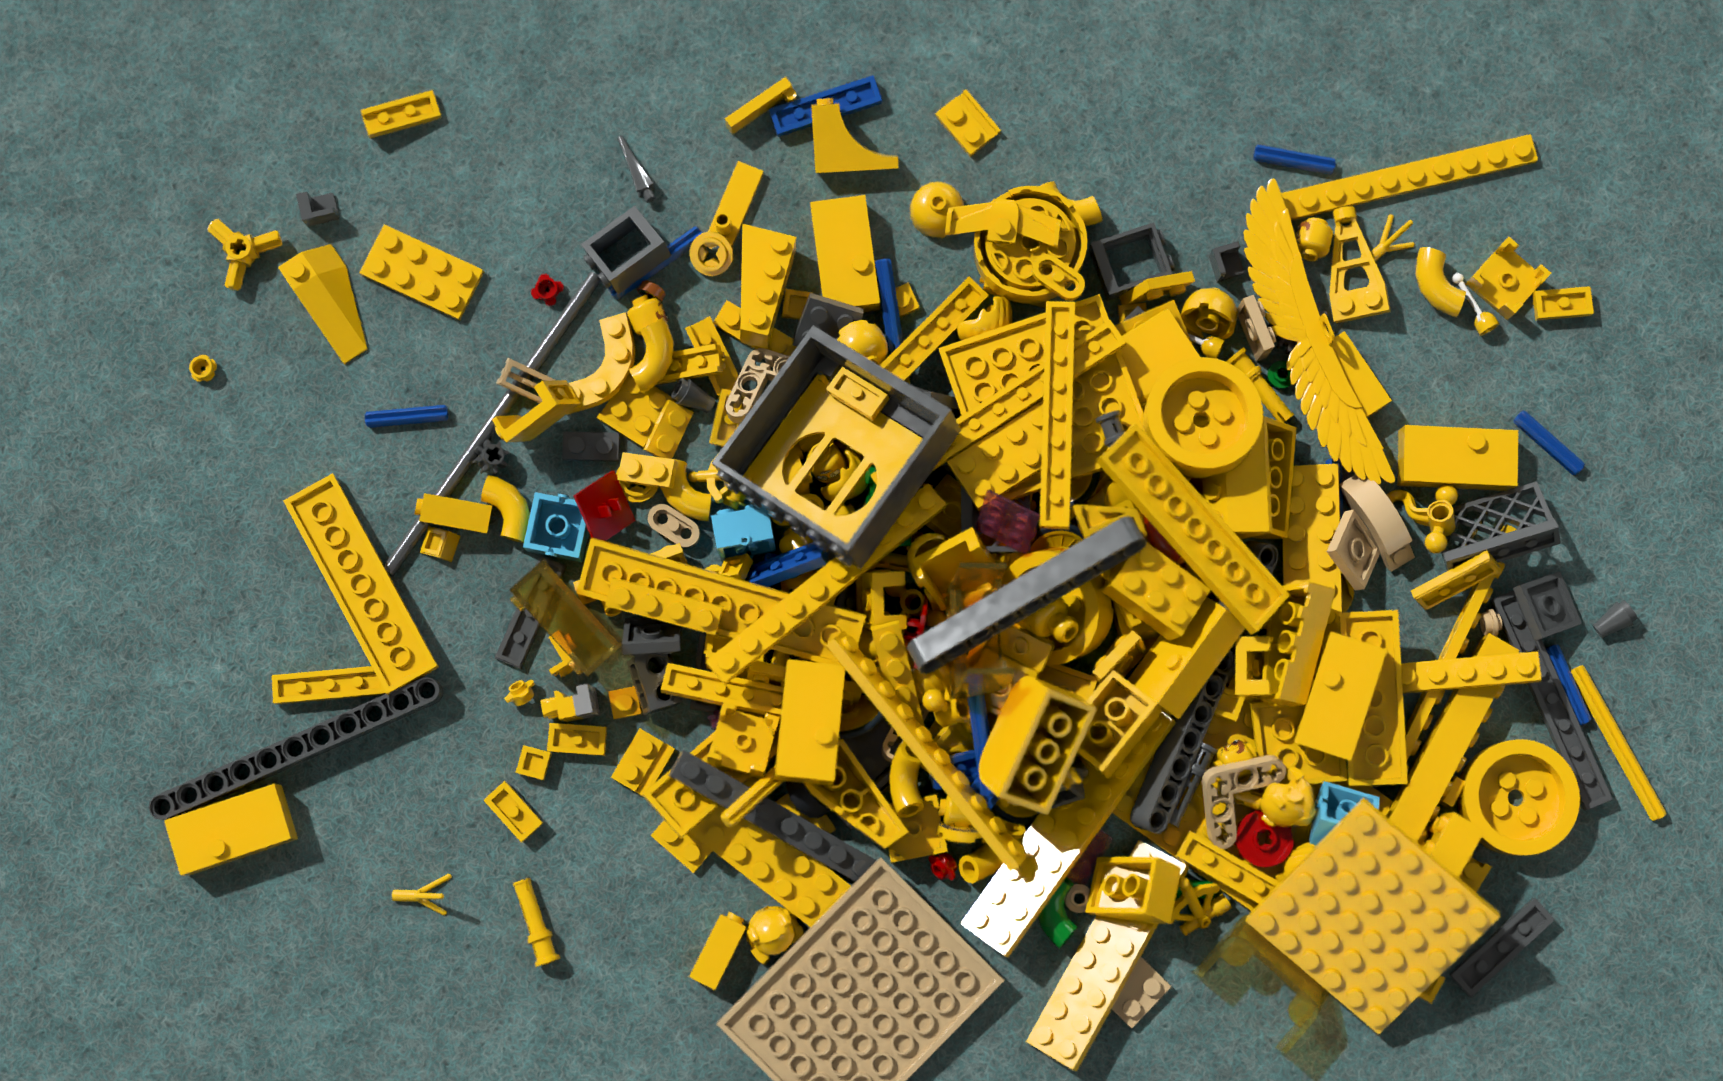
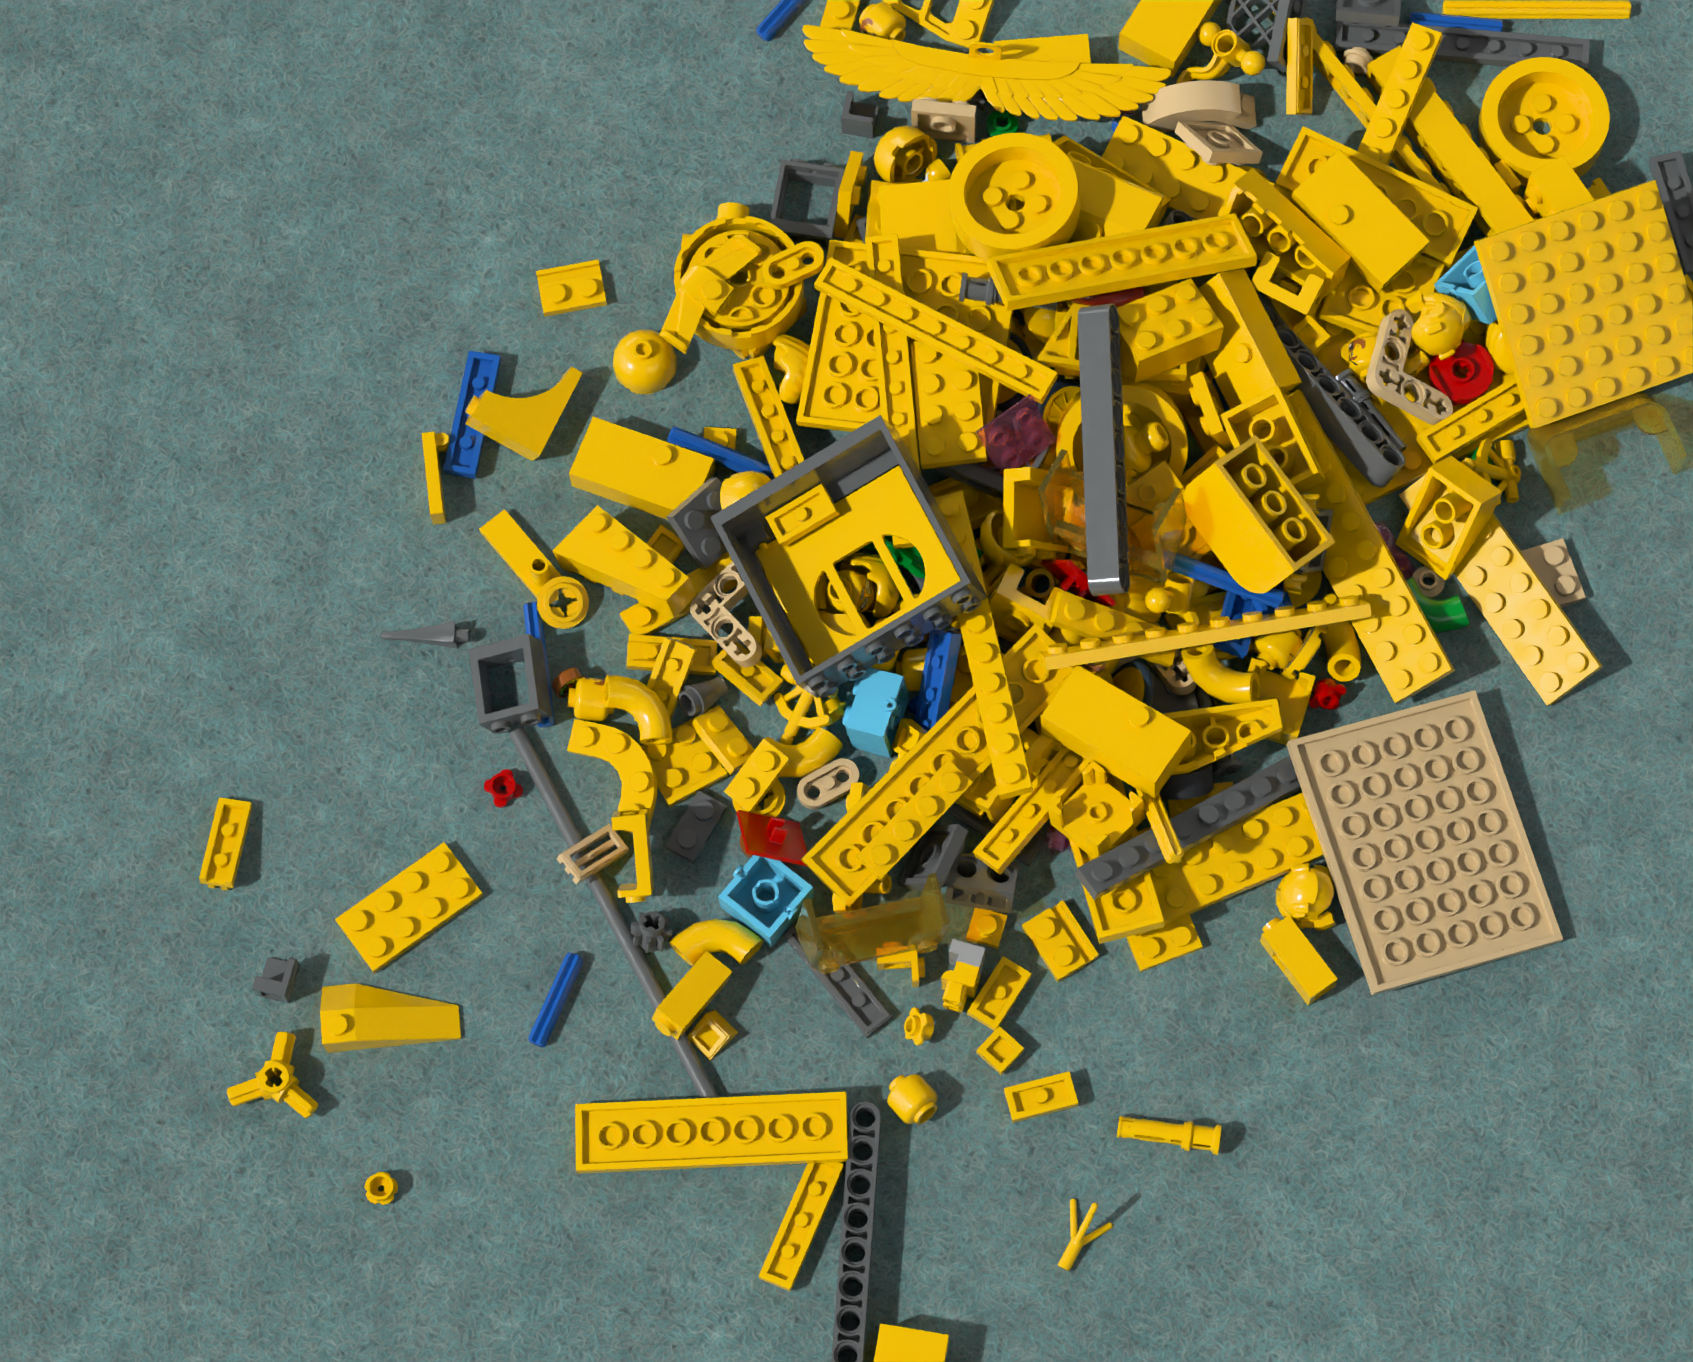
camera: 60 degrees left, 10 degrees down
(461, 717) = (912, 1099): none -> yellow head

